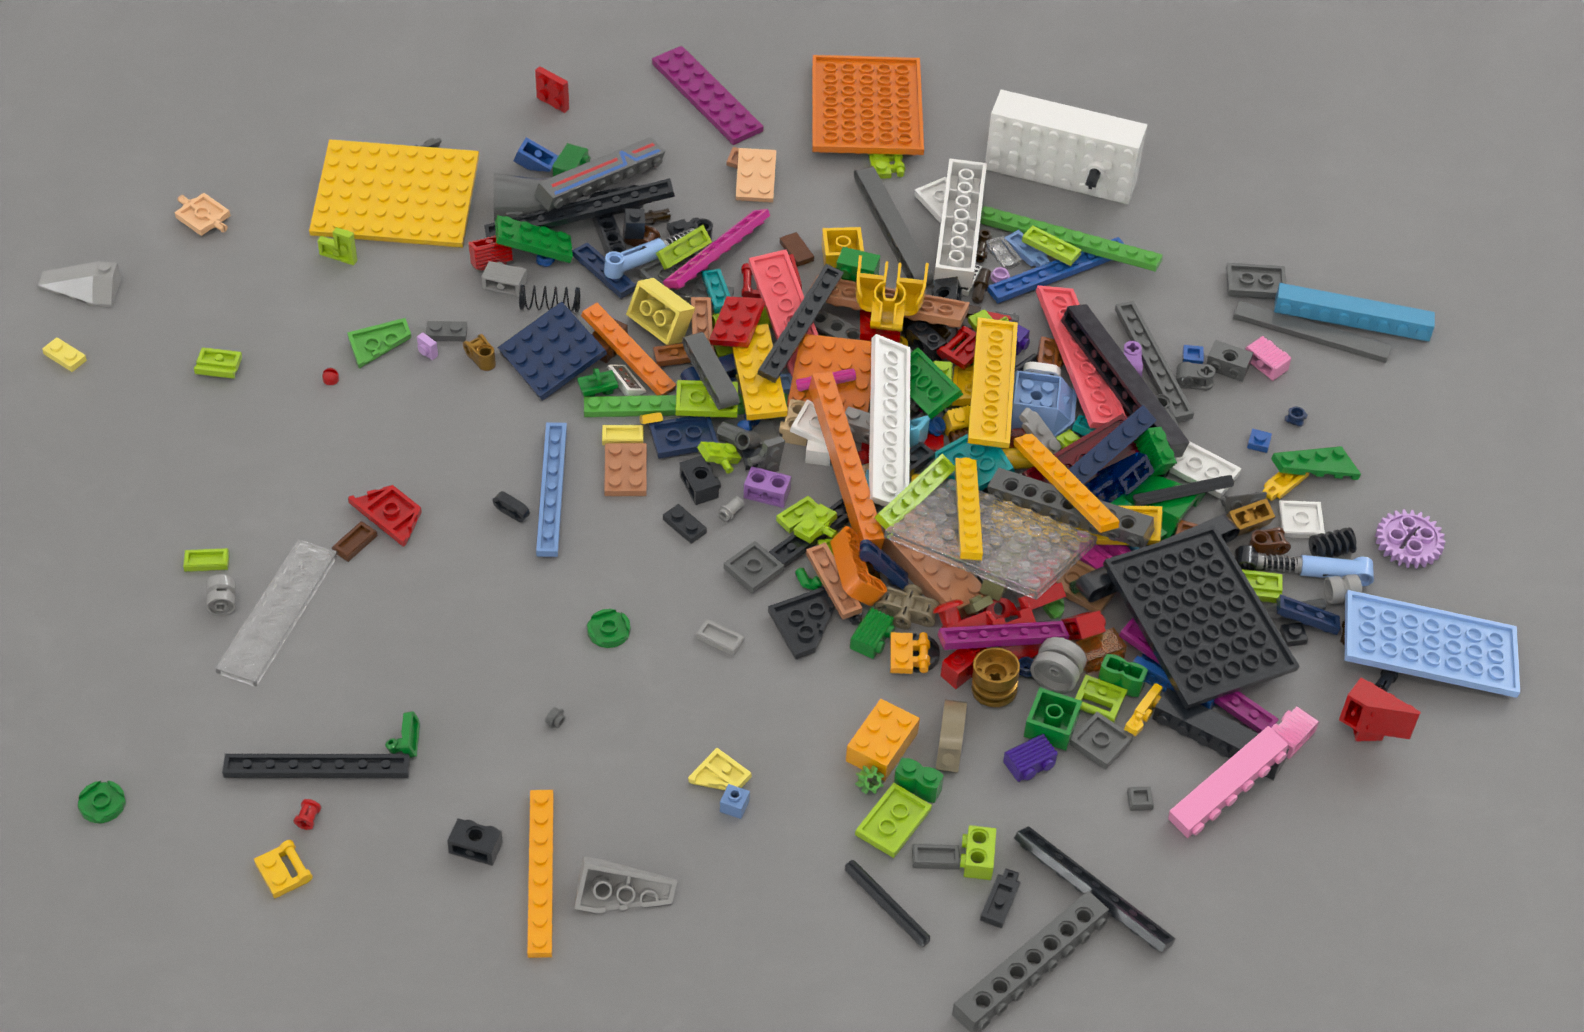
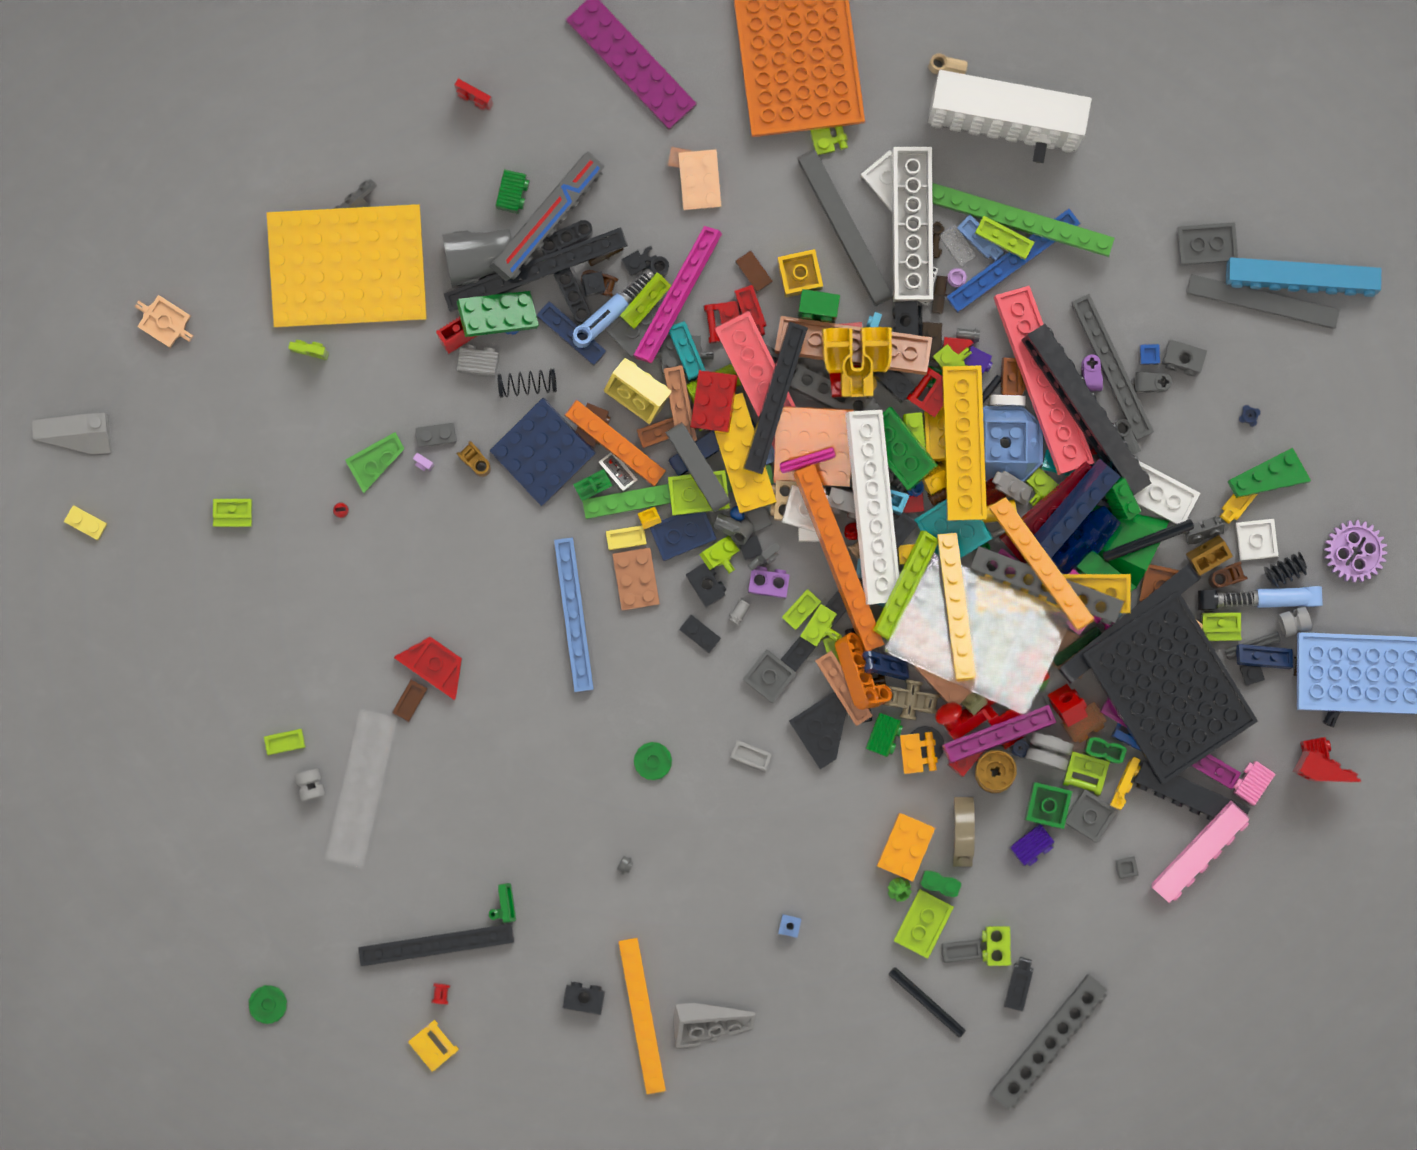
camera: 10 degrees left, 35 degrees up
(511, 506) = (541, 642): black beam -> none
(534, 156) = (475, 193): blue slope -> none
(719, 771) = (773, 899): light yellow wing -> none
(807, 582) = (819, 684): green arm -> none
(1085, 881) = (1093, 965): black plate -> none
(1259, 440) = (1216, 450): blue plate -> none
(1269, 358) = (1221, 347): bright pink brick -> none

